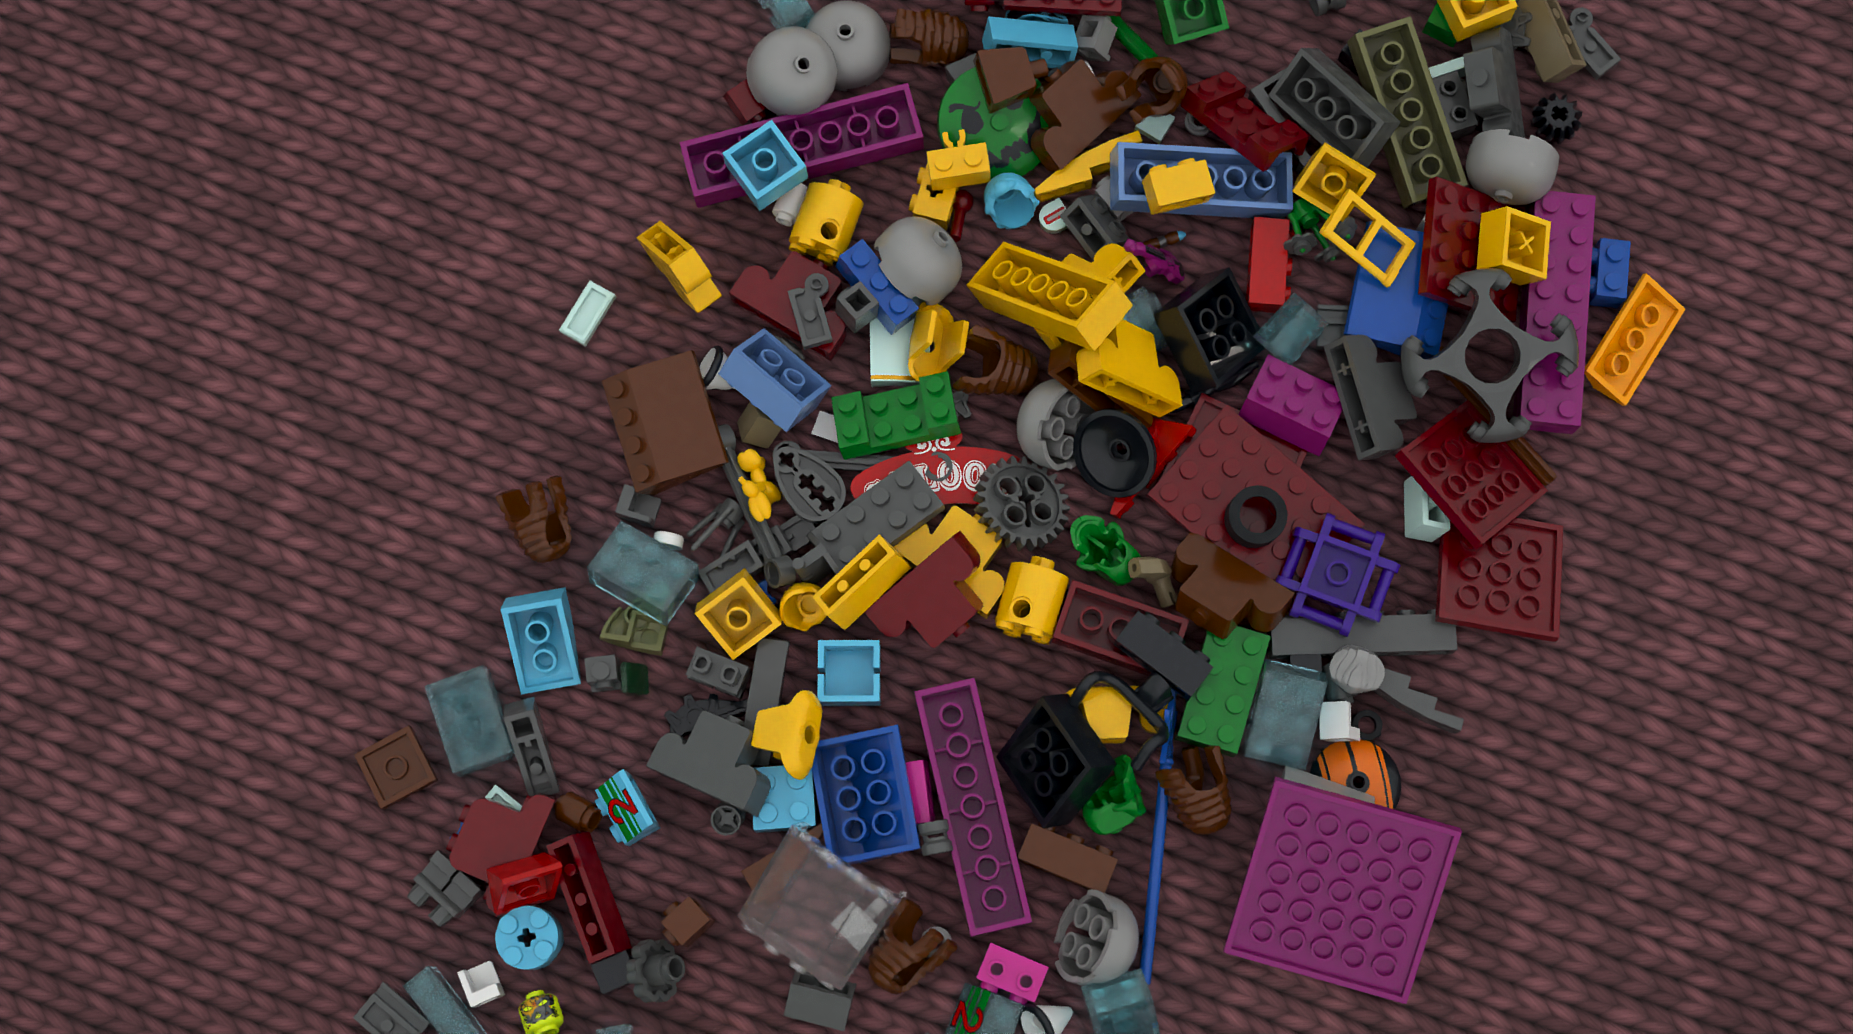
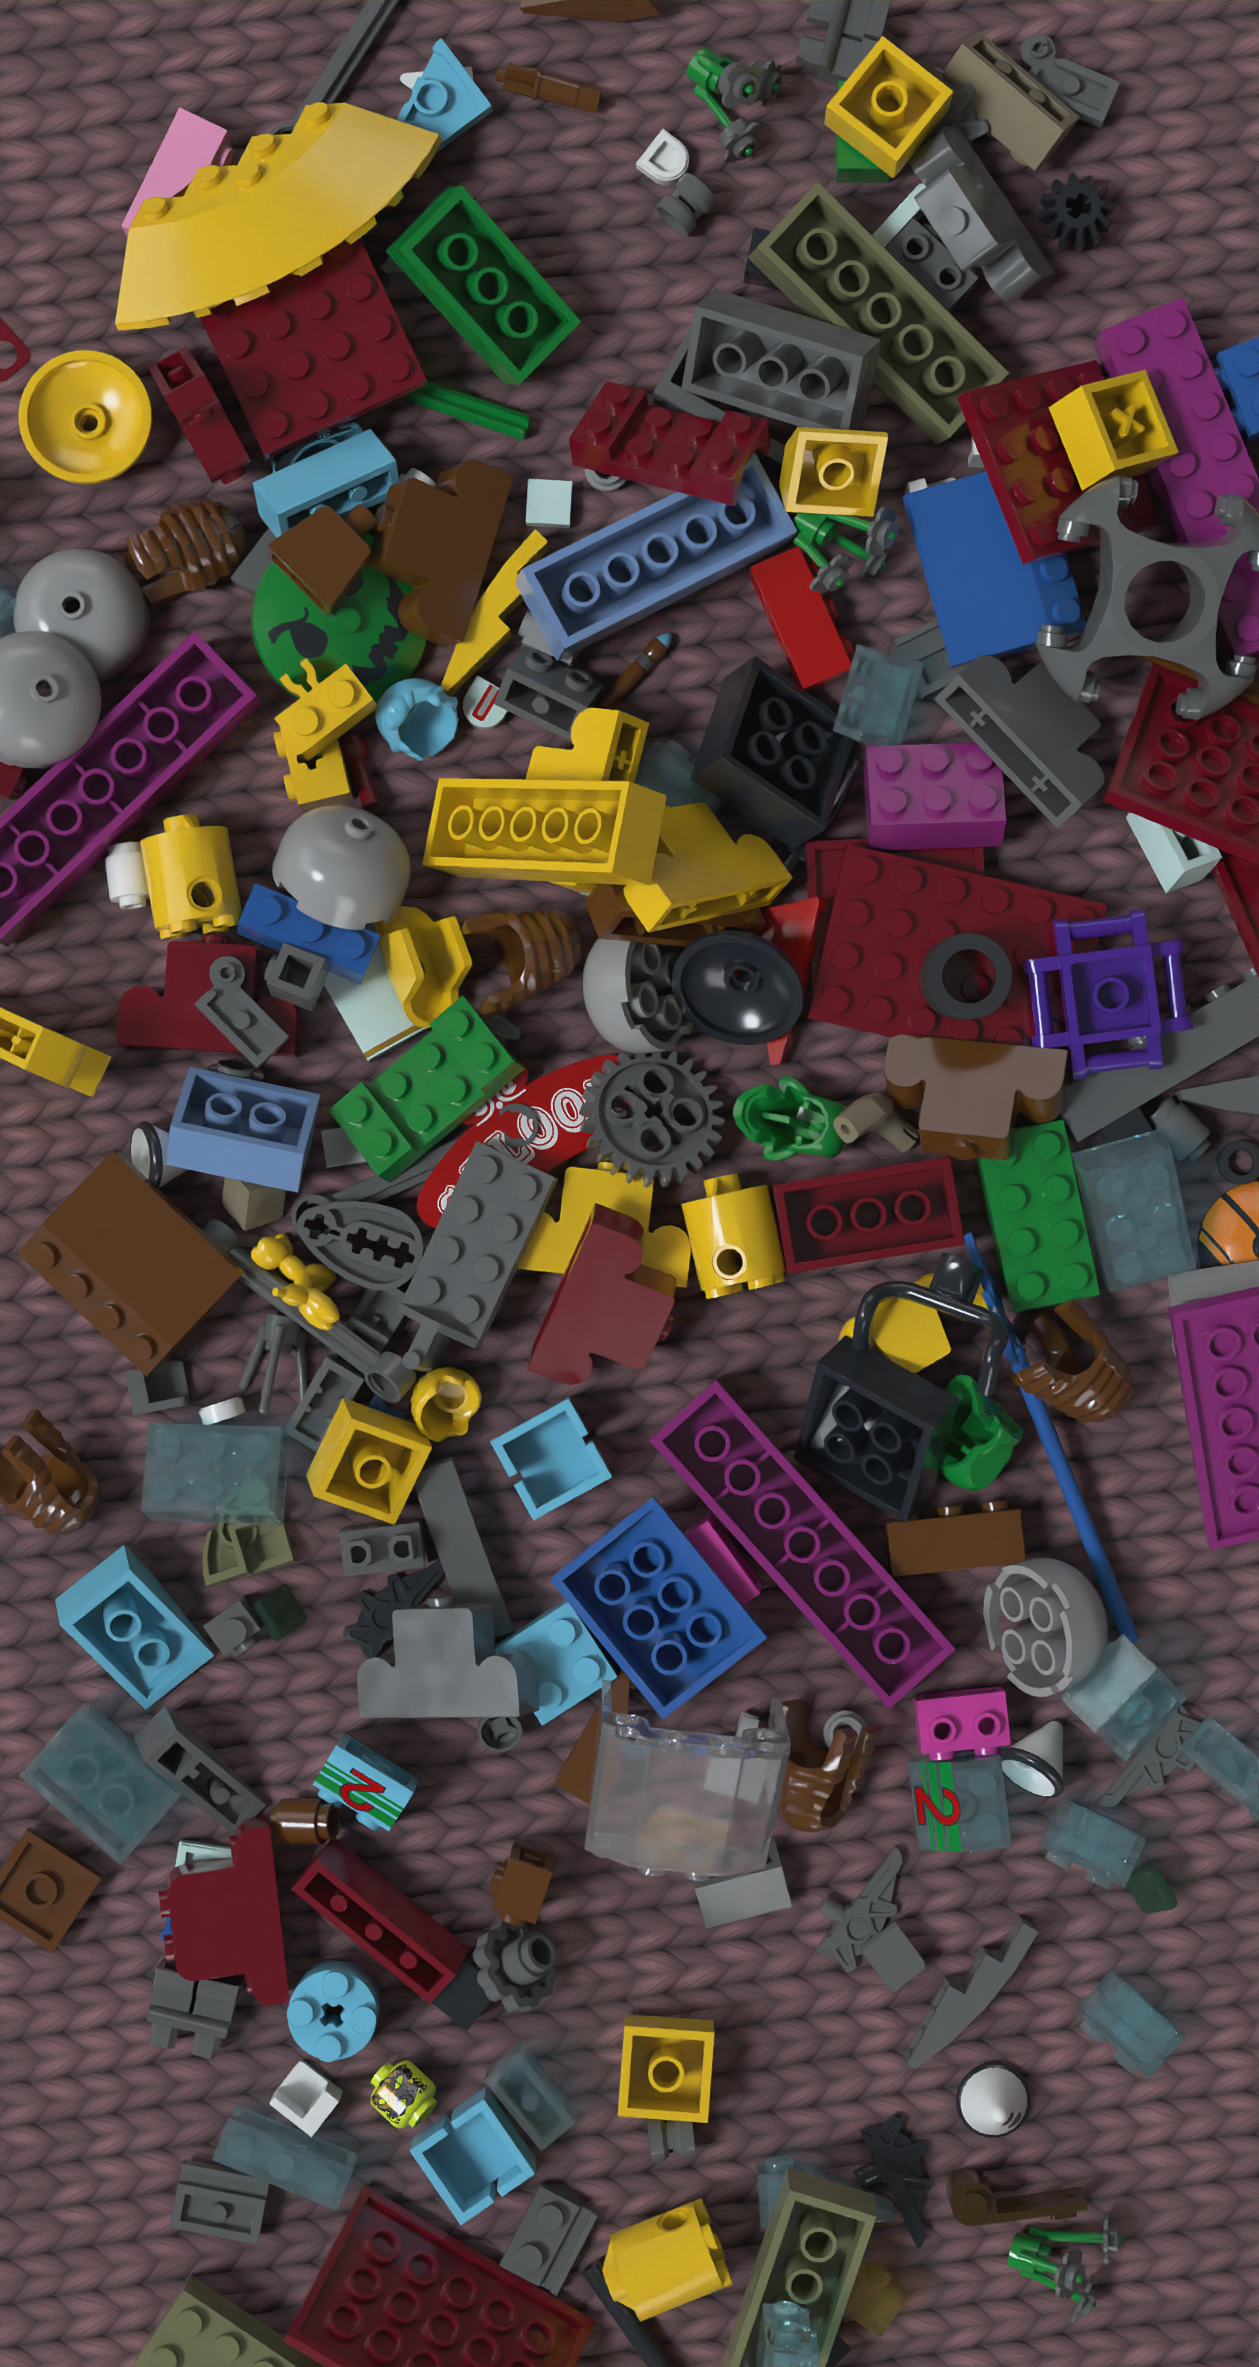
camera: 25 degrees left, 10 degrees up
(524, 882) = (288, 1949): red slope -> none
(765, 165) = (71, 852): medium azure brick -> none
(791, 732) = (524, 1583): yellow piece -> none
(861, 582) = (505, 1337): yellow brick -> none
(937, 844) = (784, 1615): dark grey wheel -> none
(1095, 37) = (408, 428): light grey brick -> none
(1158, 261) = (657, 697): magenta piece -> none
(1164, 653) = (943, 1222): black brick -> none
(1165, 81) = (535, 441): reddish brown hair -> none
(1178, 185) = (633, 588): yellow brick -> none
(1328, 227) = (921, 493): yellow window -> none
(1336, 722) = (1203, 1183): white panel -> none
(1356, 669) = (1195, 1104): light grey hair -> none
(1511, 167) = (1055, 321): light grey cylinder -> none

